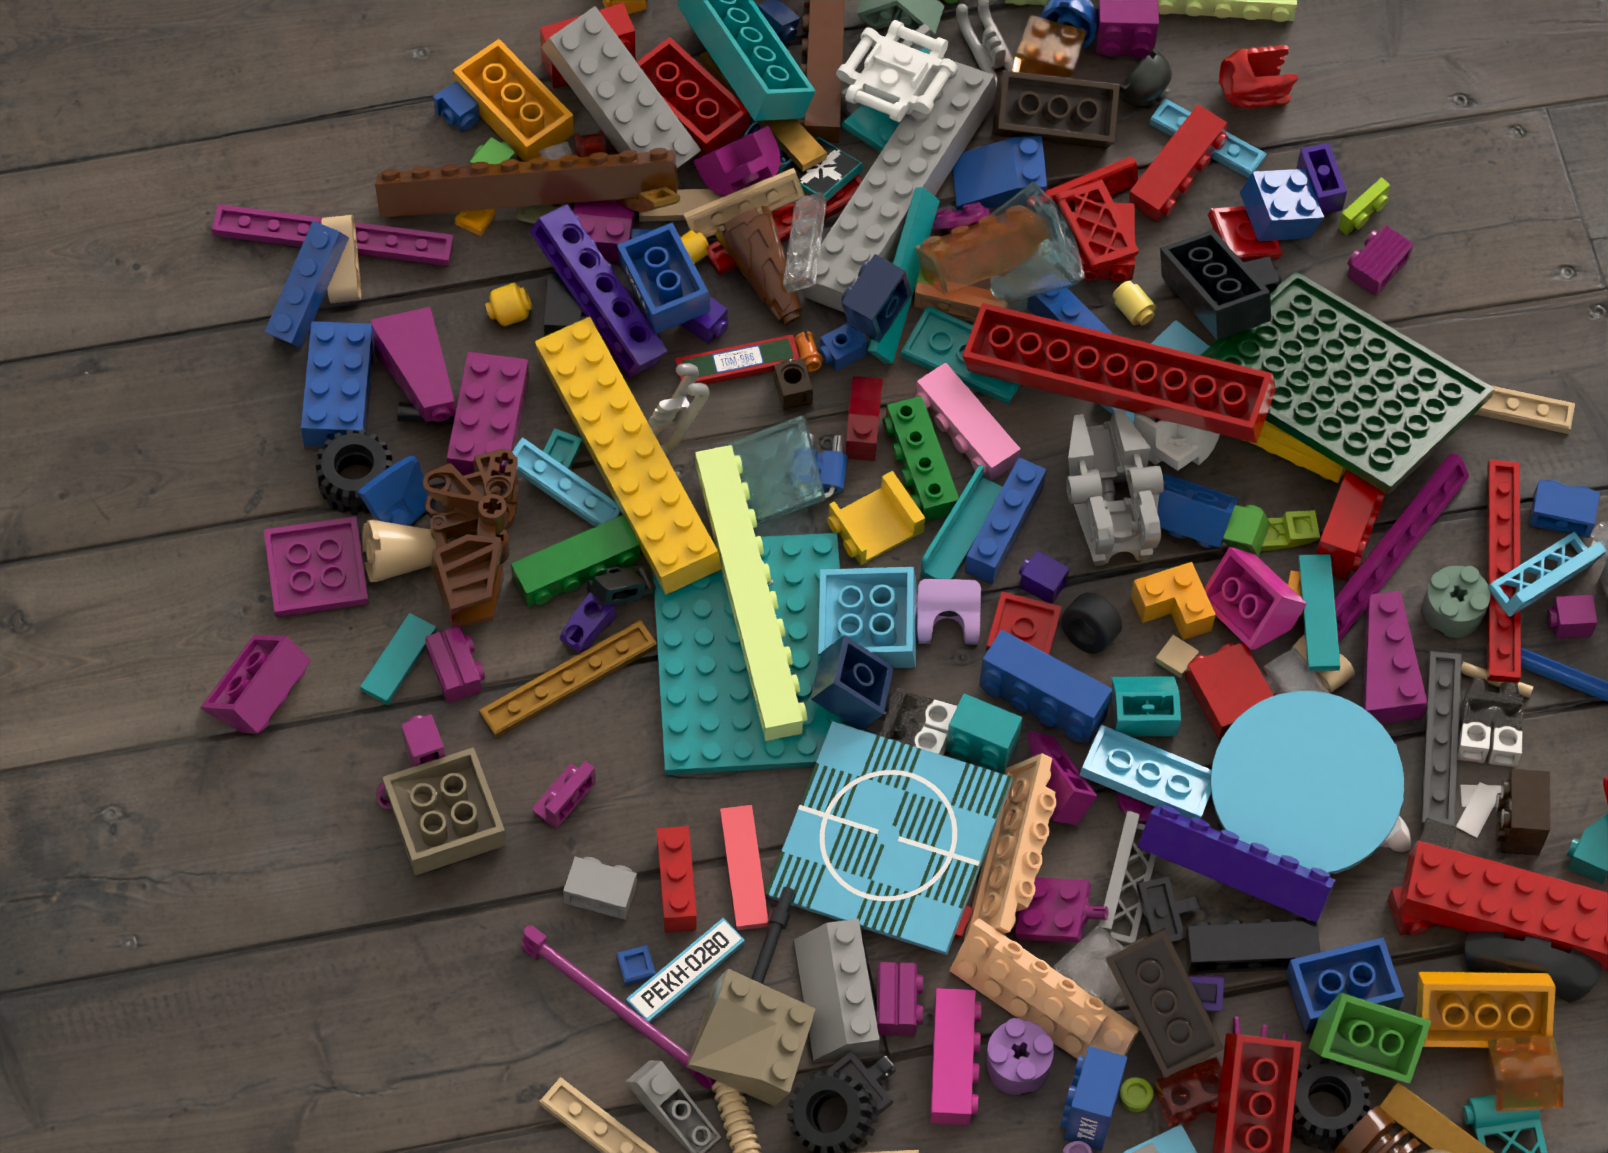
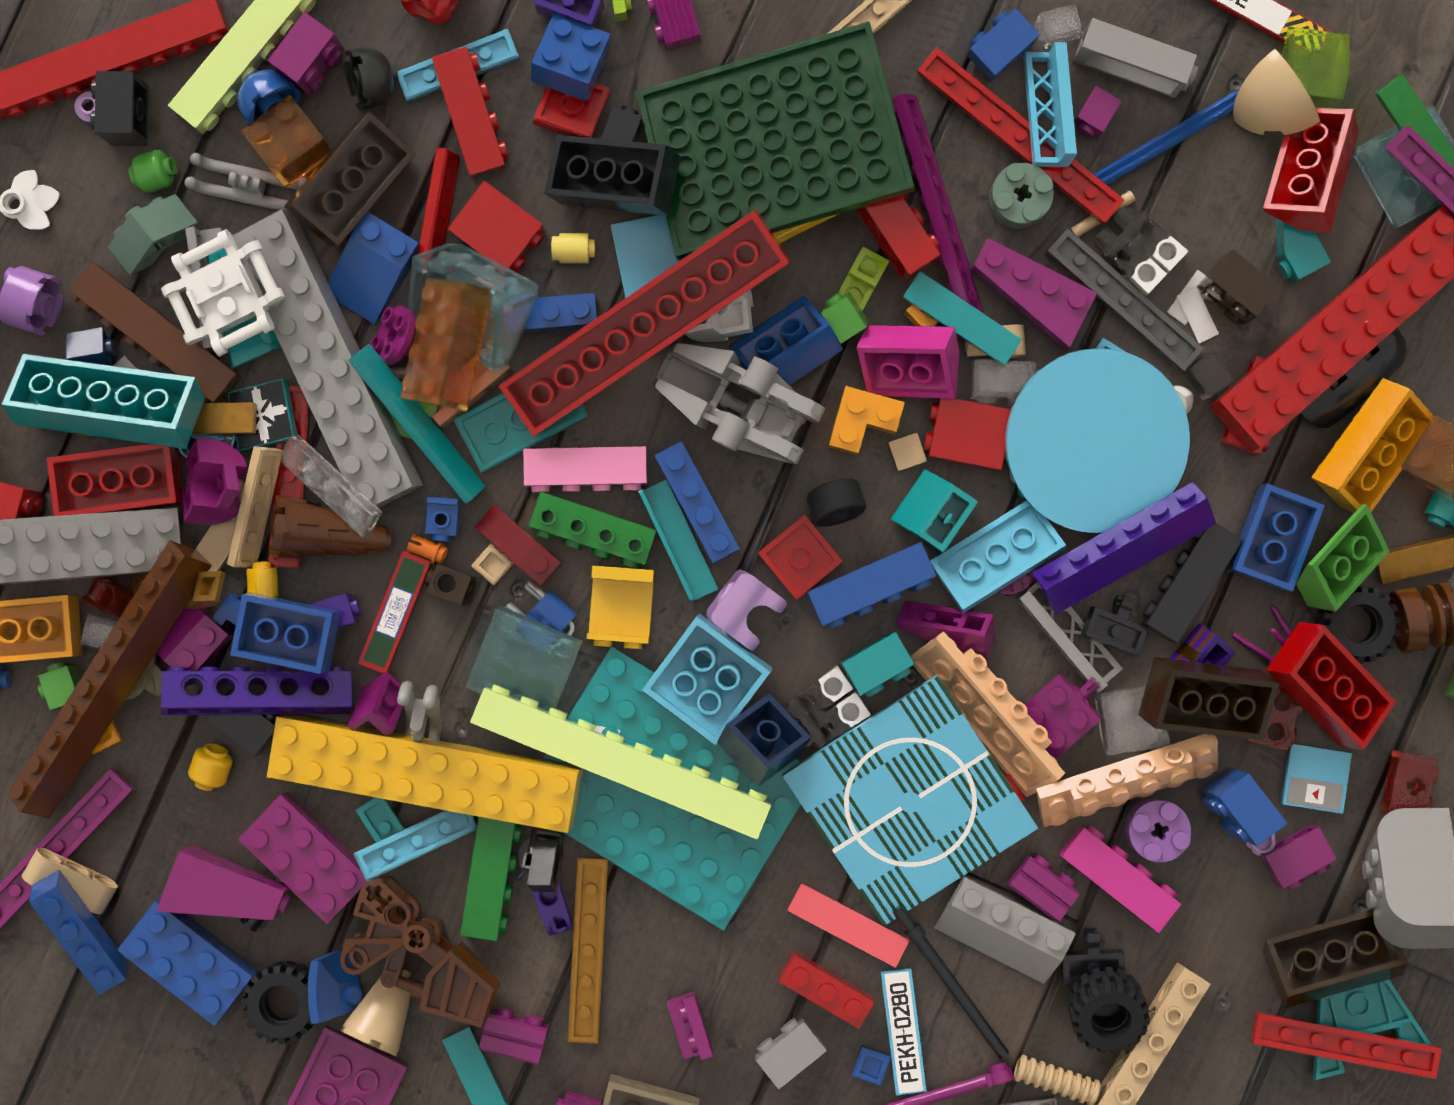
camera: 50 degrees left, 25 degrees up
(652, 387) = (378, 704): none -> magenta panel
(751, 1037) = (1006, 1031): dark tan slope -> none
(833, 408) = (492, 564): none -> tan tile
(876, 297) = (434, 474): dark blue brick -> none
(1043, 577) = (766, 509): dark purple brick -> none
(1111, 253) = (474, 205): red window -> none
(1136, 1094) = (1241, 757): lime tile -> none

